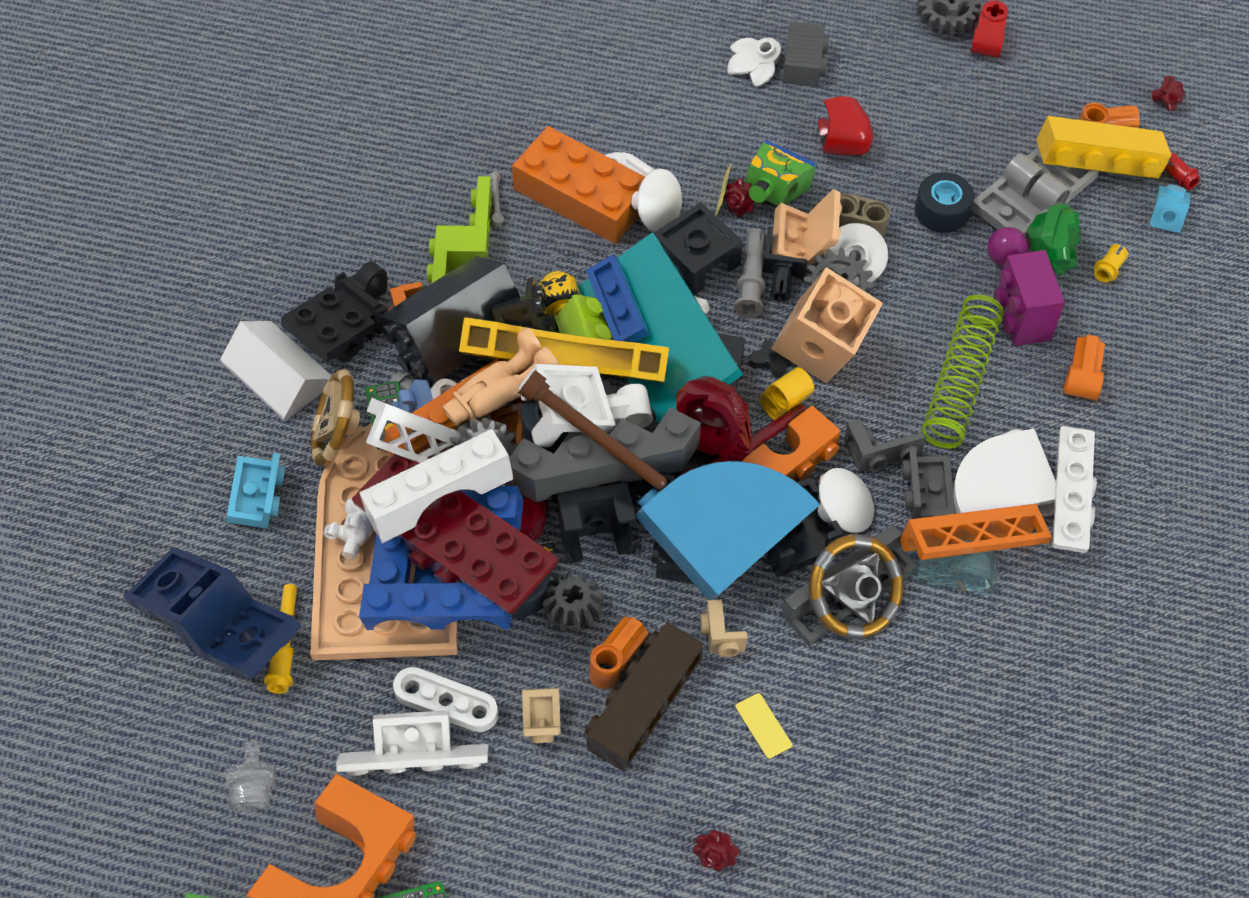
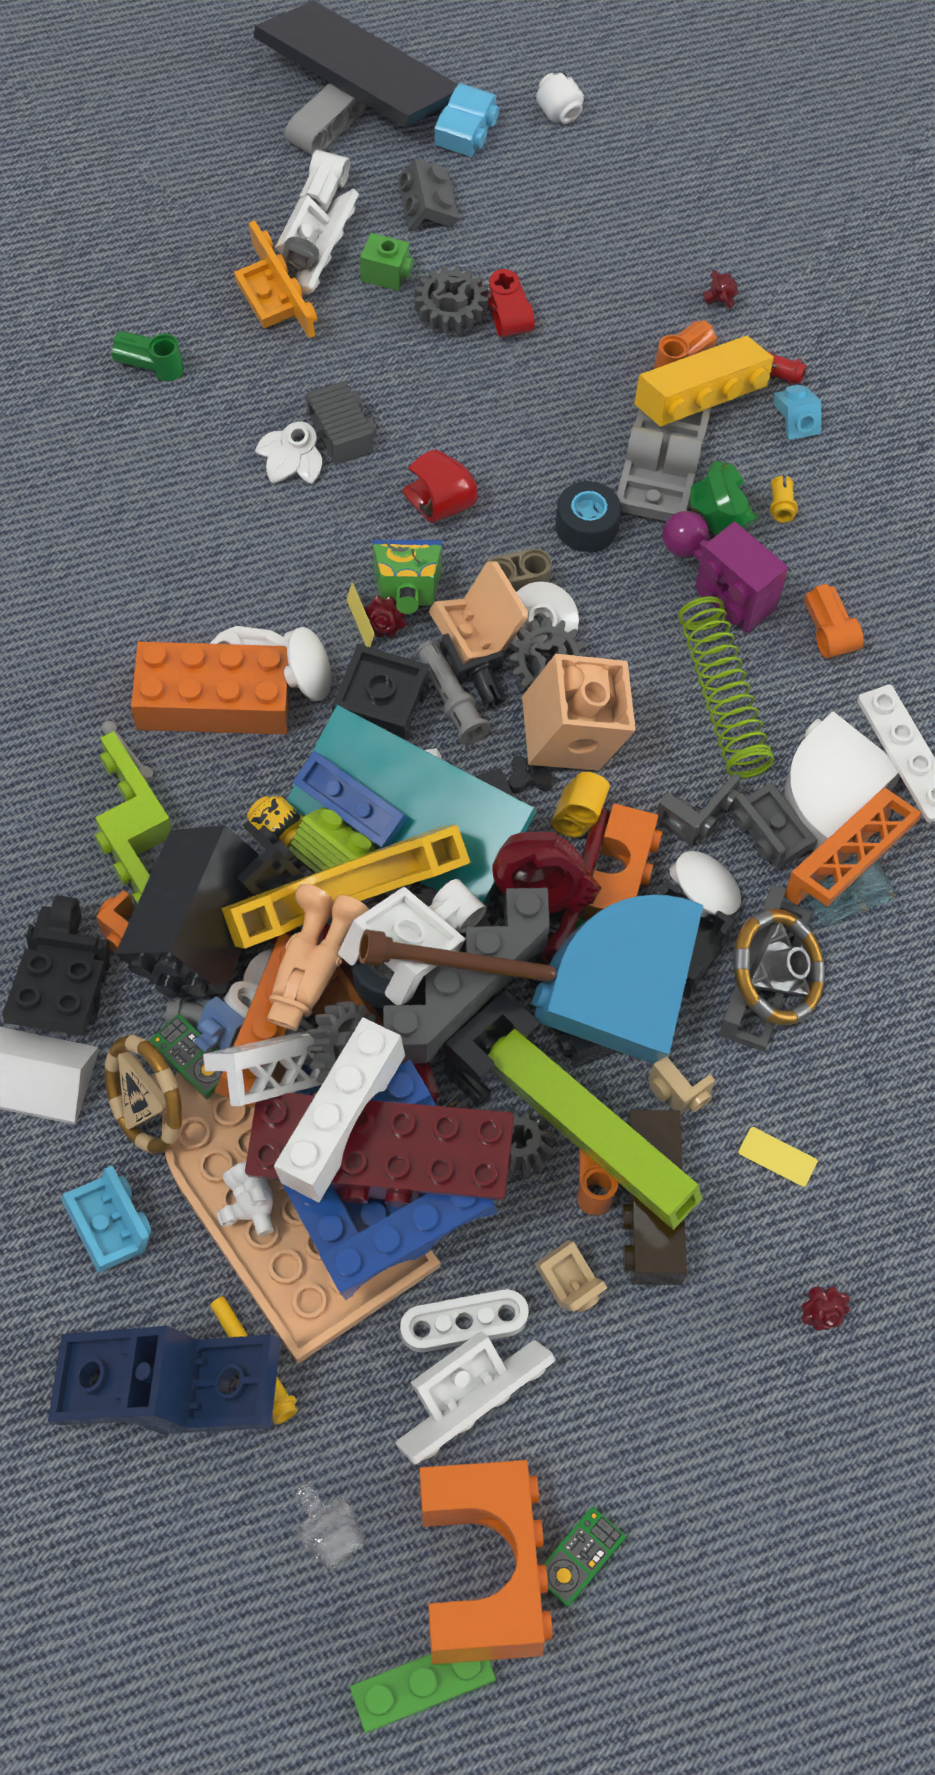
camera: 35 degrees left, 5 degrees up
(626, 618) = (595, 1129): none -> lime brick

